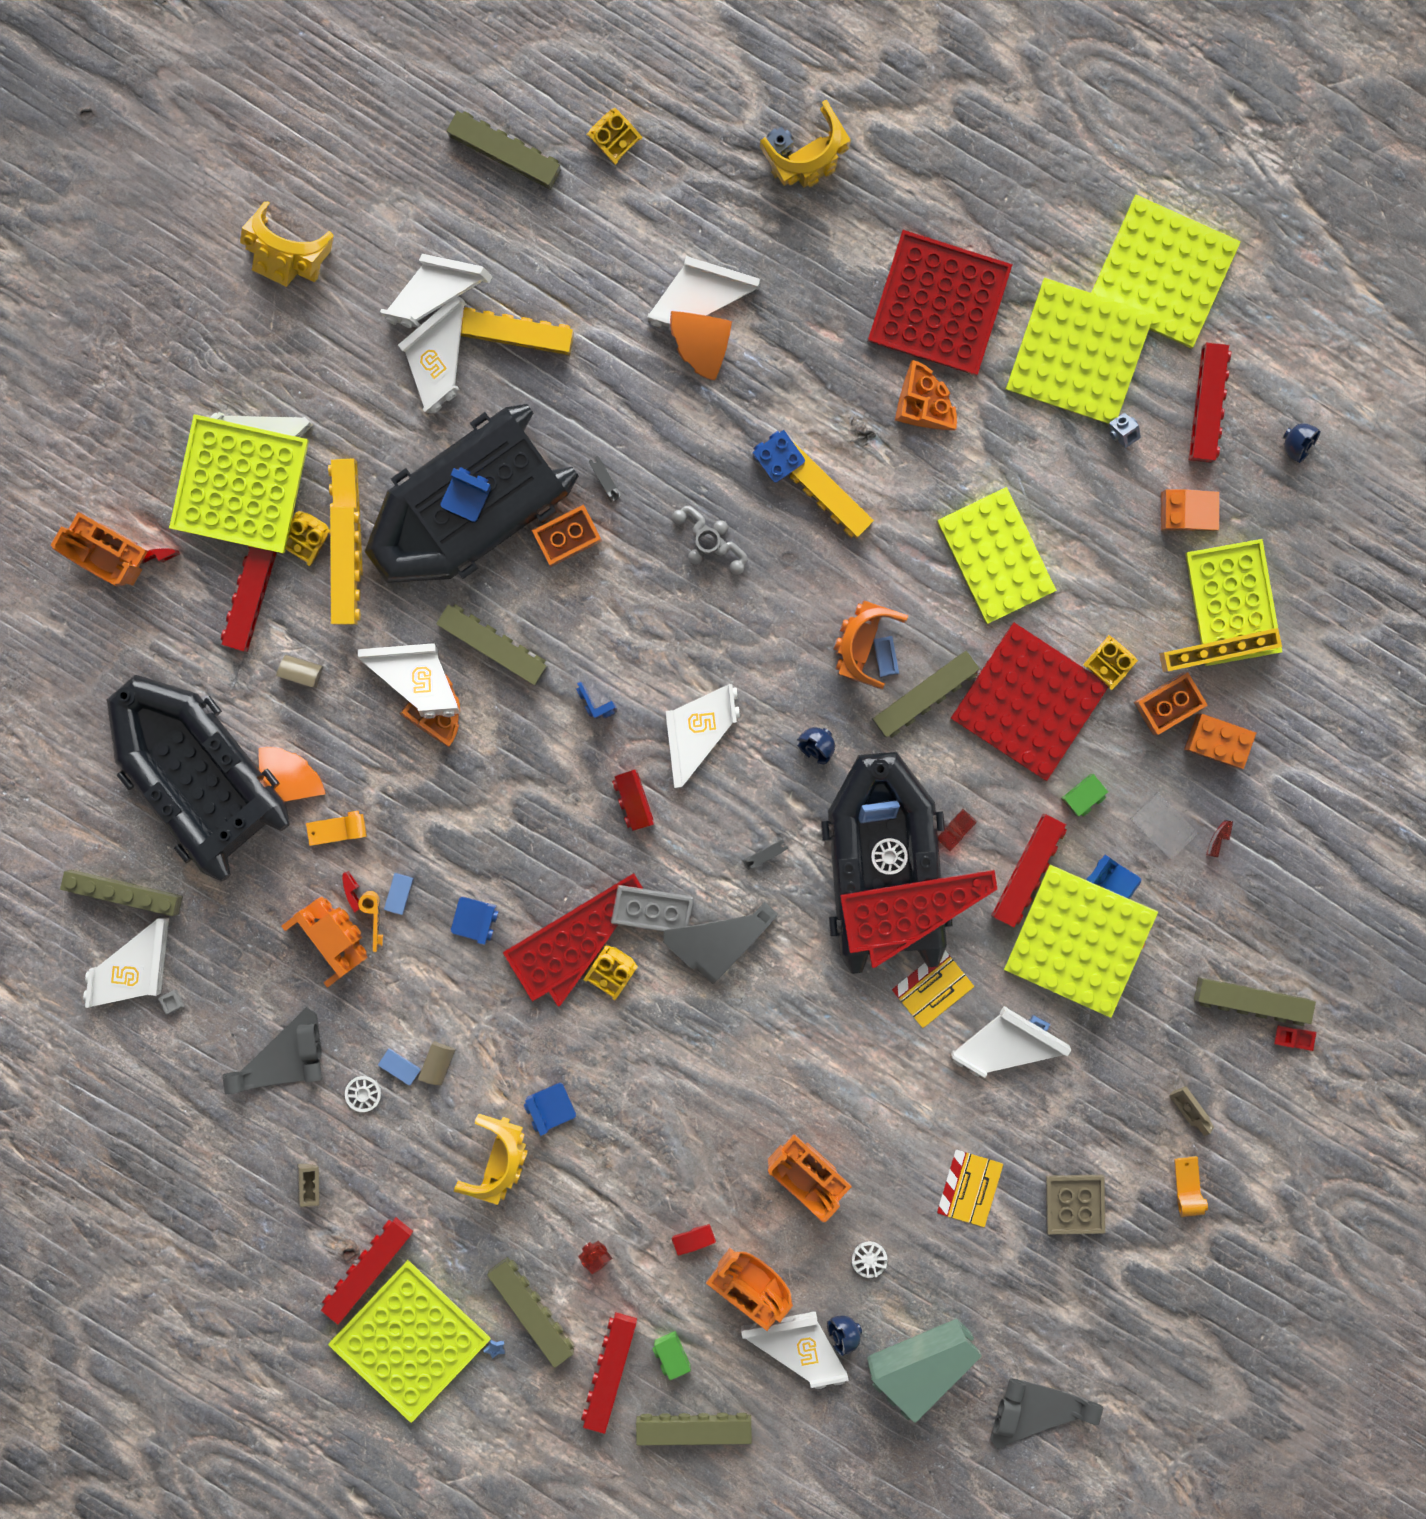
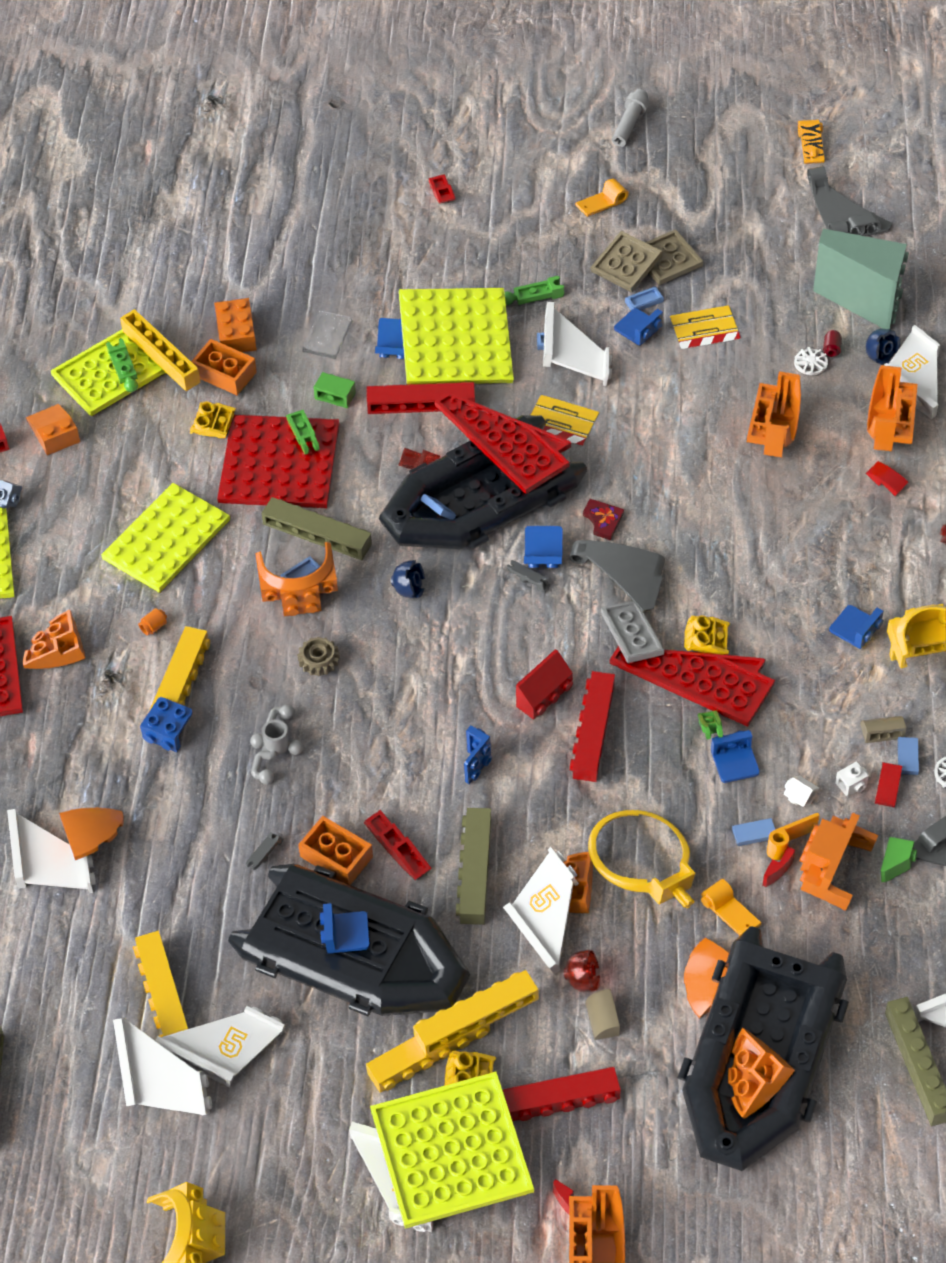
camera: 115 degrees left, 35 degrees down
(171, 754) = (755, 1073): none -> orange brick
(305, 992) = (897, 858): none -> bright green slope
(343, 675) = (581, 971): none -> clear red cylinder
(378, 1031) = (888, 784): none -> red slope
(382, 791) = (661, 891): none -> yellow brick
(399, 1005) = (852, 779): none -> white brick
(410, 954) = (800, 791): none -> white brick
(515, 918) = (710, 723): none -> bright green hinge
(549, 592) = (397, 845): none -> red slope
(573, 820) = (593, 726): none -> red brick
(697, 729) = (452, 674): white piece -> none
(780, 613) = (316, 665): none -> dark tan gear
(784, 883) = (543, 546): none -> blue bracket
(794, 960) = (604, 518): none -> dark red tile
(875, 1291) = (832, 343): none -> dark red brick
(889, 856) = (471, 488): white wheel -> none
(901, 497) = (153, 621): none -> orange brick
(1003, 1124) = (639, 326): none -> blue bracket
(1036, 1150) = (644, 299): none -> medium blue tile
(1046, 737) = (302, 430): none -> bright green hinge
(1088, 1159) = (626, 261): none -> dark tan plate
(1103, 1050) = (536, 291): none -> bright green plate
(1149, 1441) = (811, 140): none -> light orange door
(1192, 1110) = (541, 222): dark tan hinge -> none
(1222, 832) = (309, 295): clear red slope -> none
(1224, 608) = (123, 365): none -> bright green plate
(1254, 1000) = (429, 222): olive brick -> none
(1298, 1297) = (635, 105): none -> light grey piece

